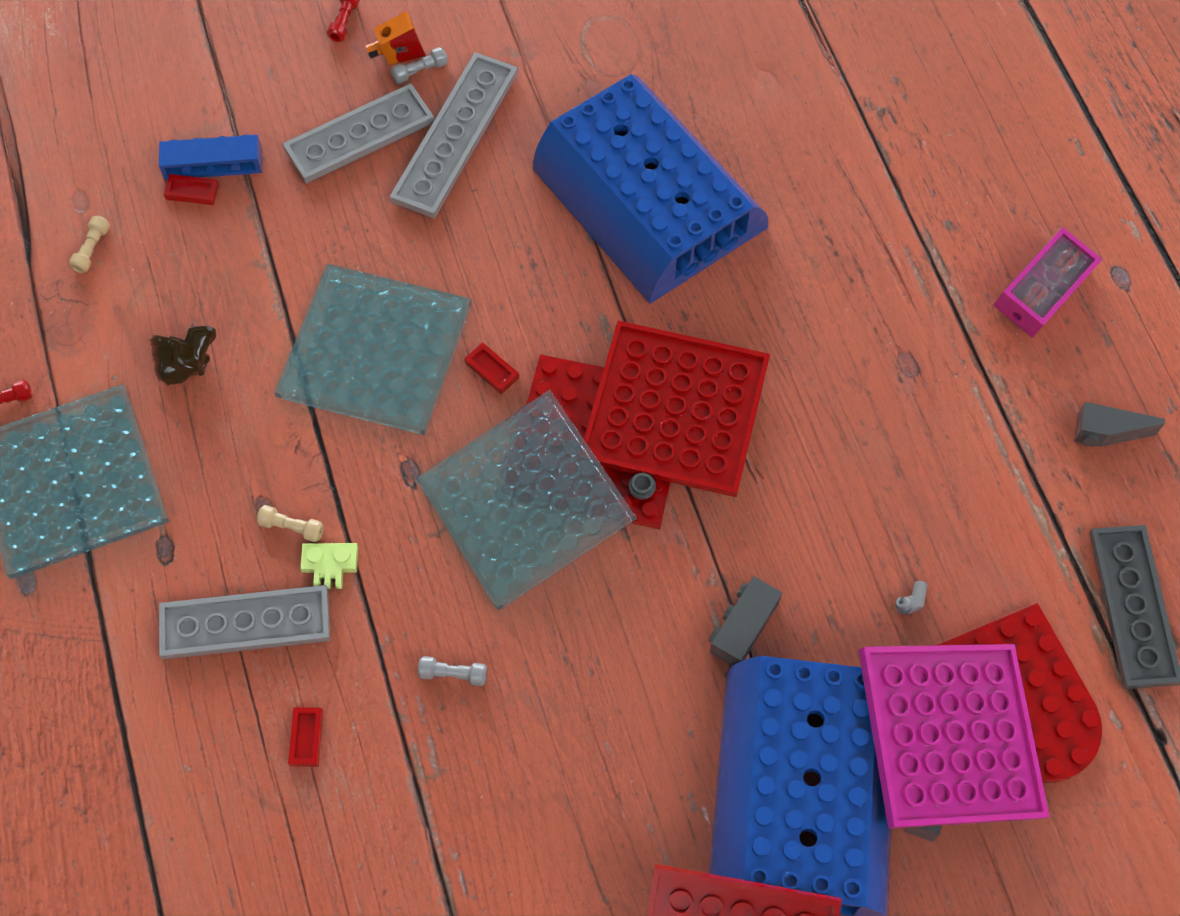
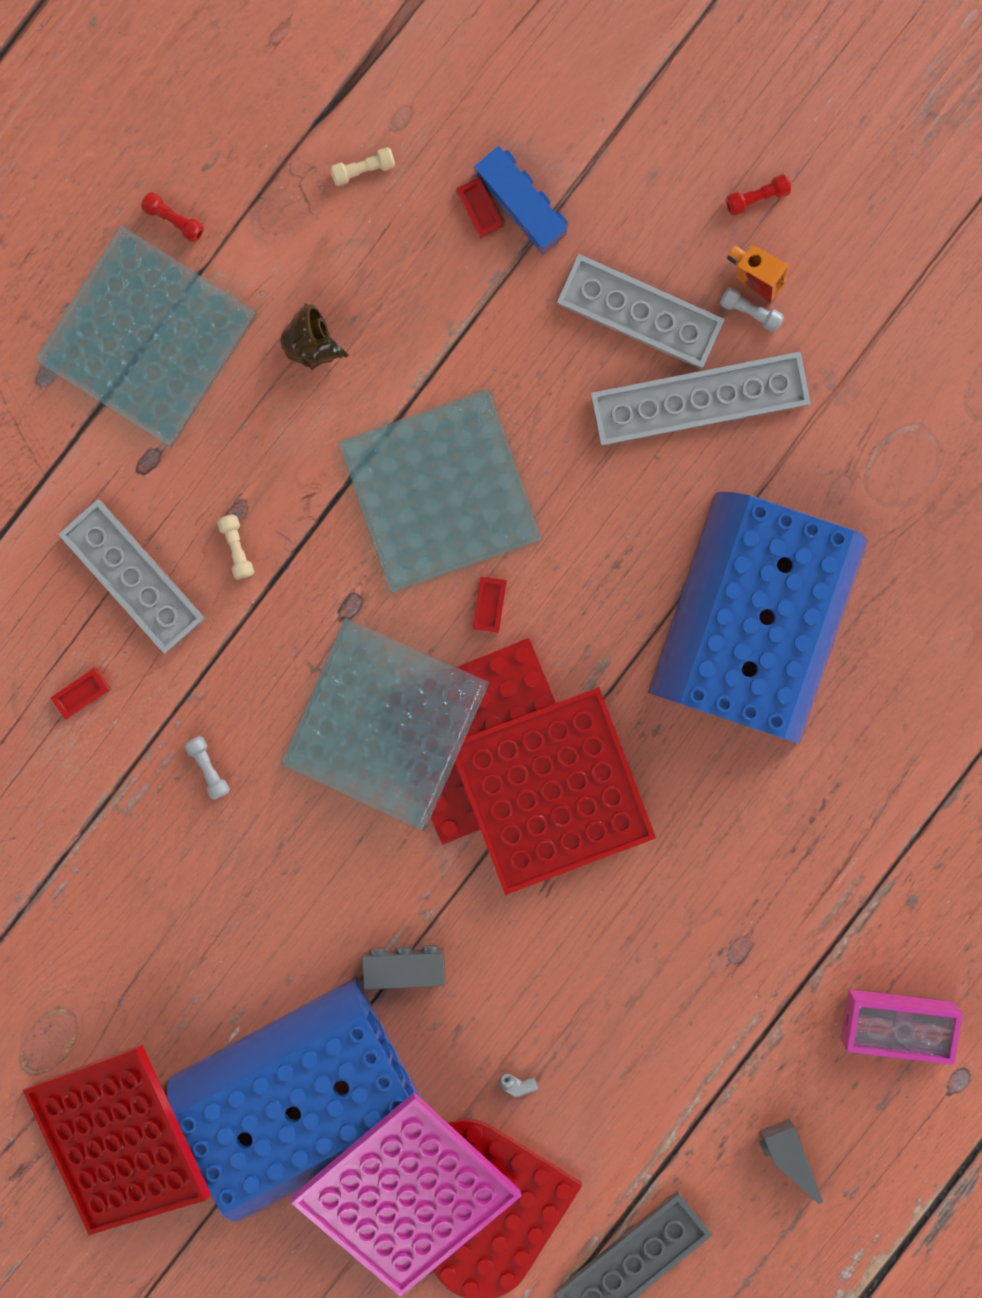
camera: 50 degrees right, 25 degrees up
(329, 561) = (227, 602): yellowish green hinge -> none
(642, 486) = (460, 811): dark grey plate -> none

